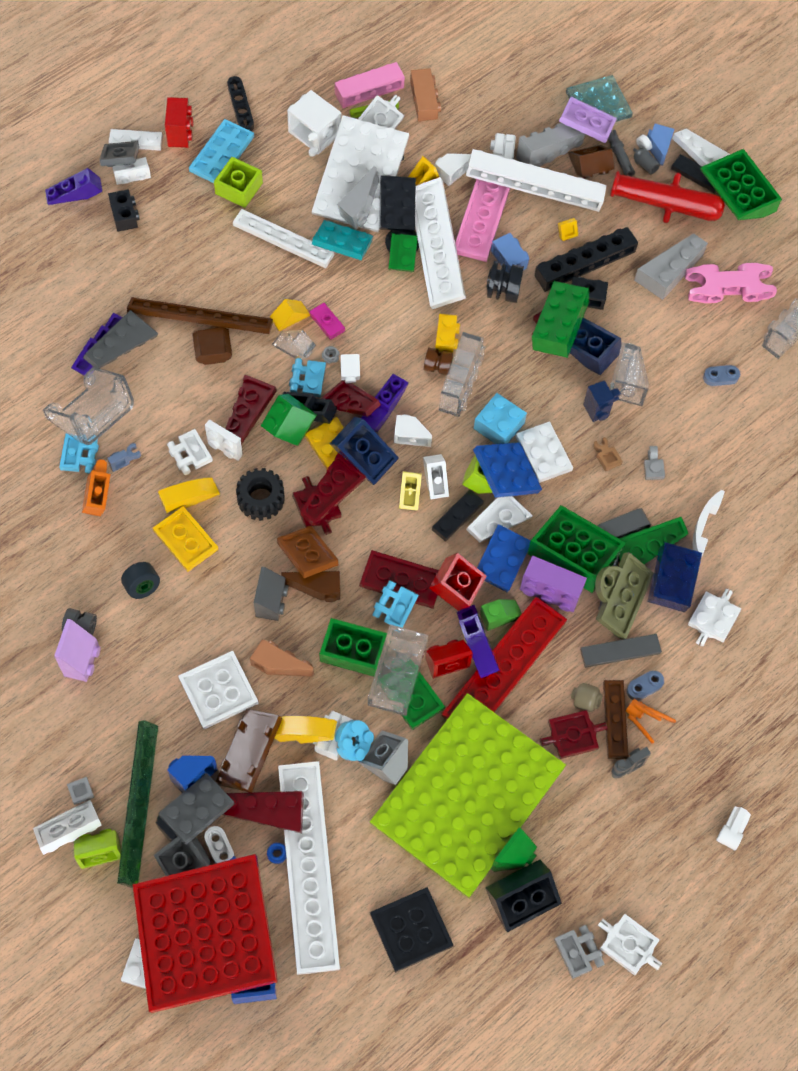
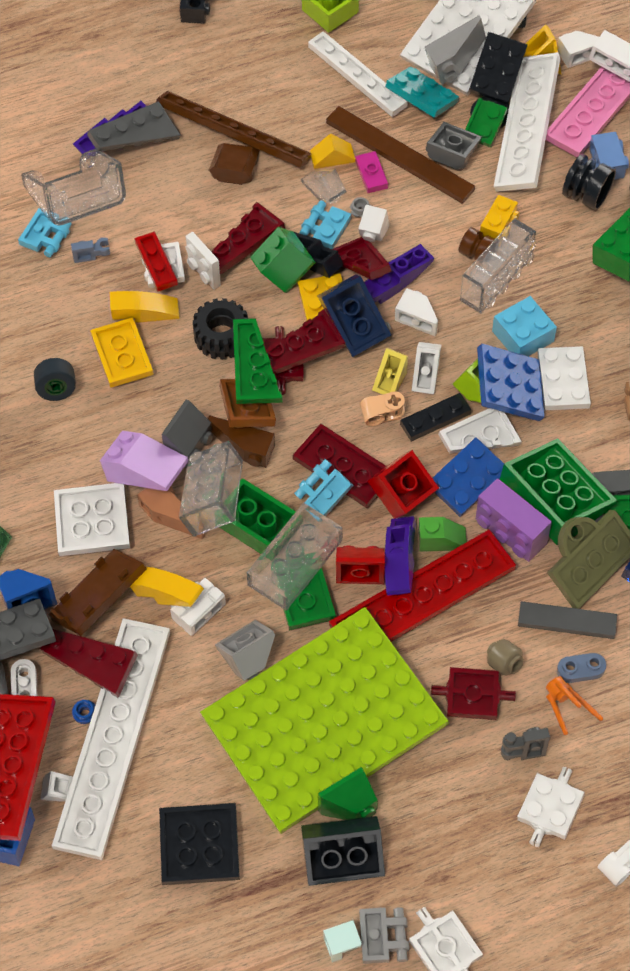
camera: 25 degrees right, 5 degrees down
(96, 489) = (46, 273): orange brick -> none
(184, 452) = (156, 261): none -> red tile
(243, 629) = (142, 462): none -> lavender slope
(280, 923) = (55, 786): none -> white slope
(305, 526) = (253, 371): none -> green wing
(310, 635) = (211, 488): none -> clear brick
(344, 299) = (400, 154): none -> reddish brown tile
(362, 744) = (229, 617): medium azure plate -> none
(385, 280) = (452, 146): none -> dark grey slope
(412, 524) = (382, 408): none -> light nougat piece
(551, 967) = (341, 939): none -> light aqua panel
(615, 719) = (531, 691): reddish brown tile -> none
(664, 804) = (550, 806): none -> white plate

